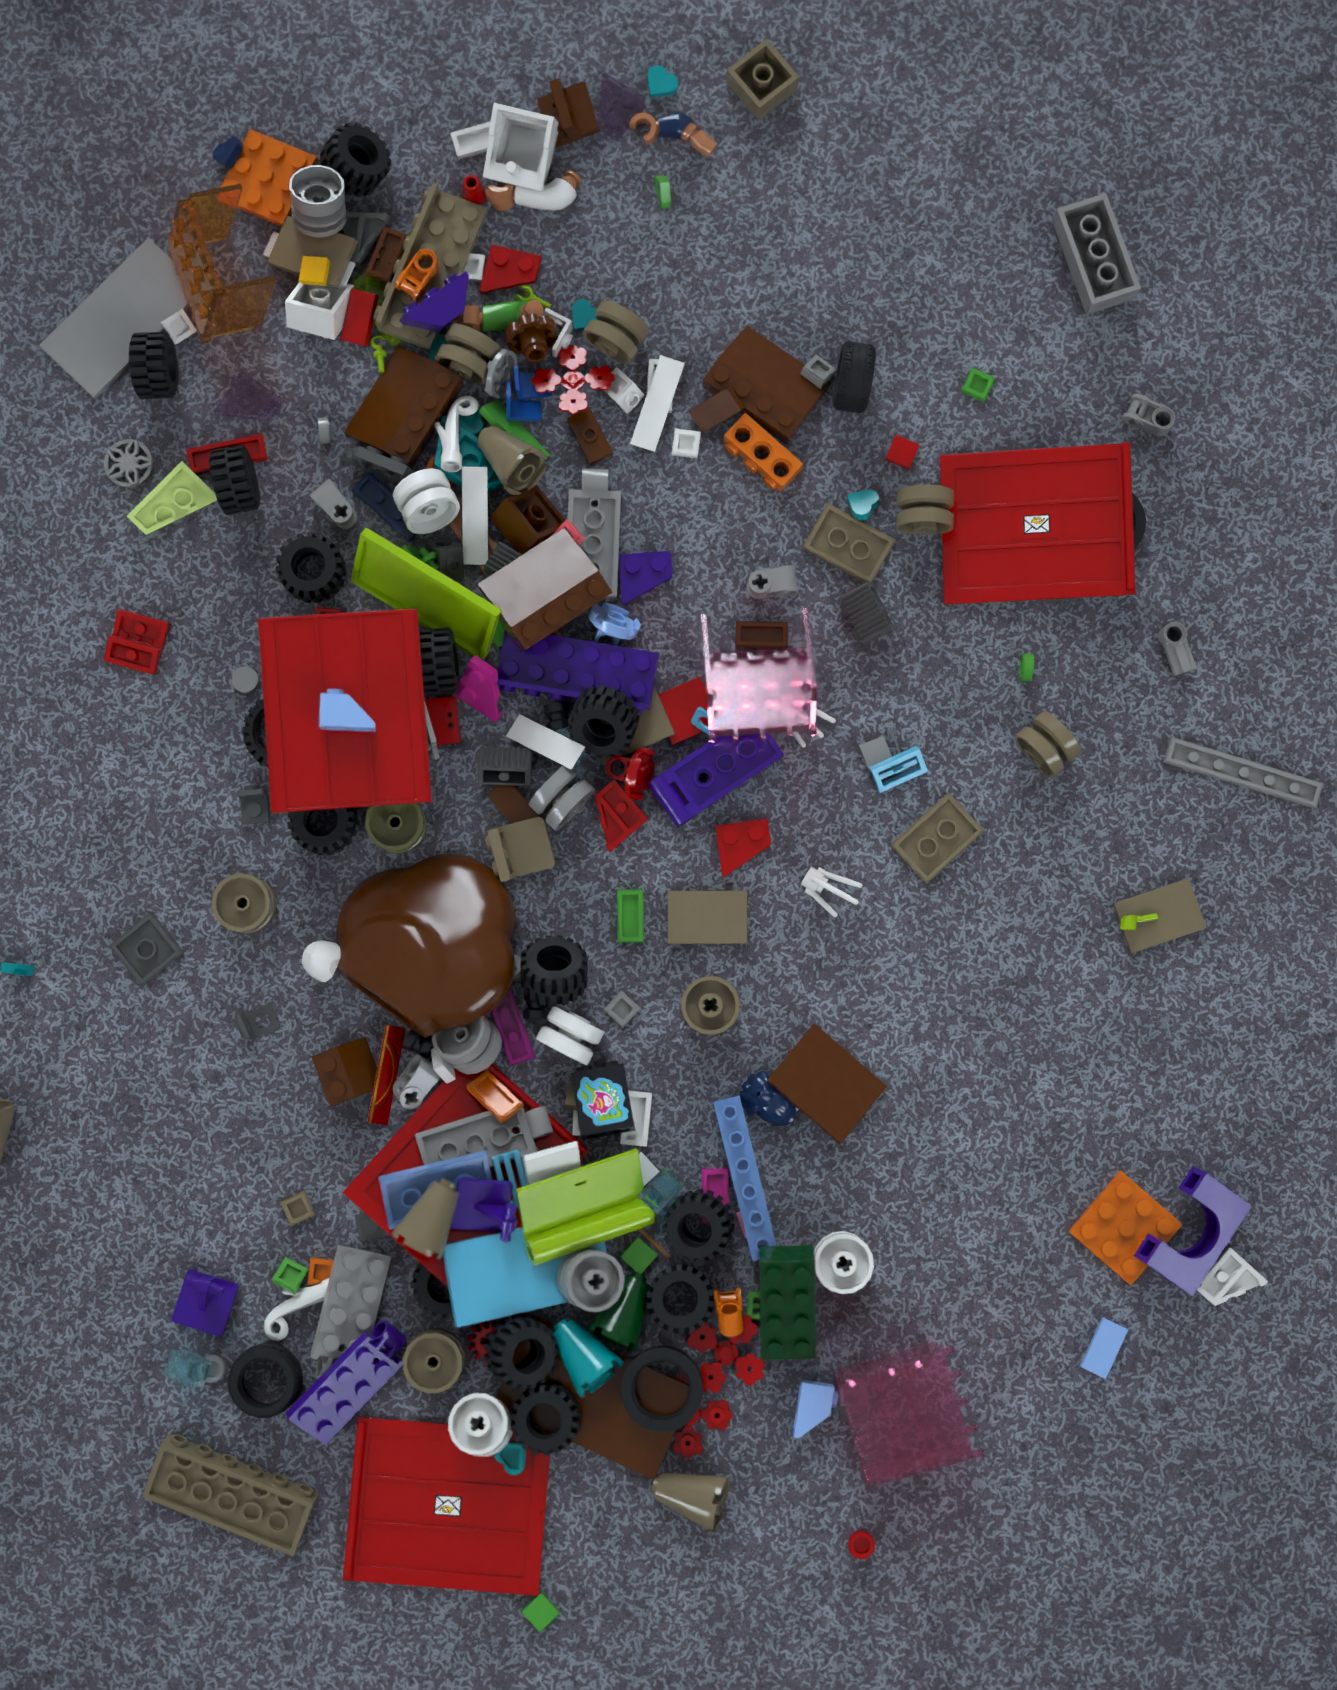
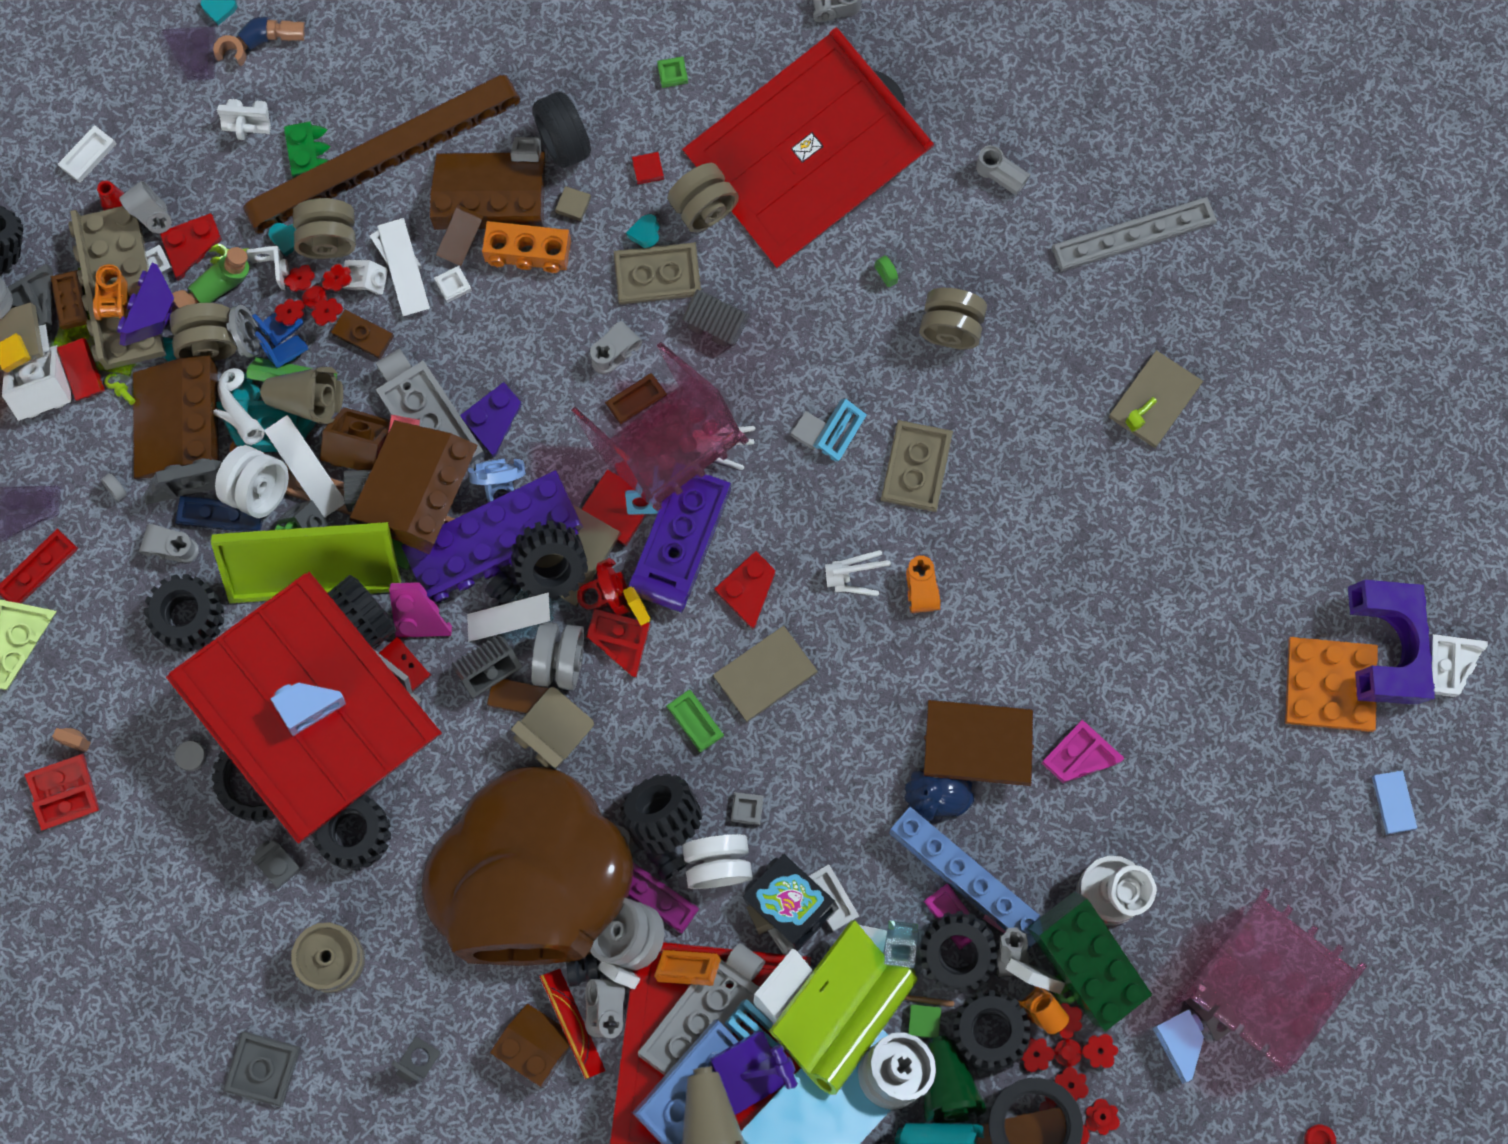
camera: 35 degrees left, 10 degrees down
(168, 607) = (71, 738): none -> nougat tile
(234, 479) = (58, 581): black tyre -> none
(321, 959) = (437, 957): white piece -> none
(401, 838) = (430, 800): olive wheel -> none
(493, 219) = (147, 207): none -> light grey piece
(520, 147) = (128, 129): white piece -> none
(531, 336) = (250, 280): reddish brown plant -> none
(554, 197) = (186, 158): piece -> none
(572, 110) = (153, 82): reddish brown bracket -> none
(616, 195) = (244, 119): none -> white hips
(646, 800) = (636, 605): none -> yellow tile
(647, 252) = (303, 148): none -> green plate
(663, 192) = (283, 91): bright green tile -> none
(705, 296) = (383, 151): none -> reddish brown beam
(710, 989) = (828, 730): dark tan wheel -> none
(736, 1256) = (1012, 945): none -> light grey piece
(739, 1284) = (1035, 976): none -> white tile
(823, 441) = (573, 203): none -> dark tan tile
(851, 1273) = (1127, 890): none -> white helmet
(870, 940) = (922, 589): none -> orange piece
(896, 1145) = (1081, 754): none -> dark pink wing

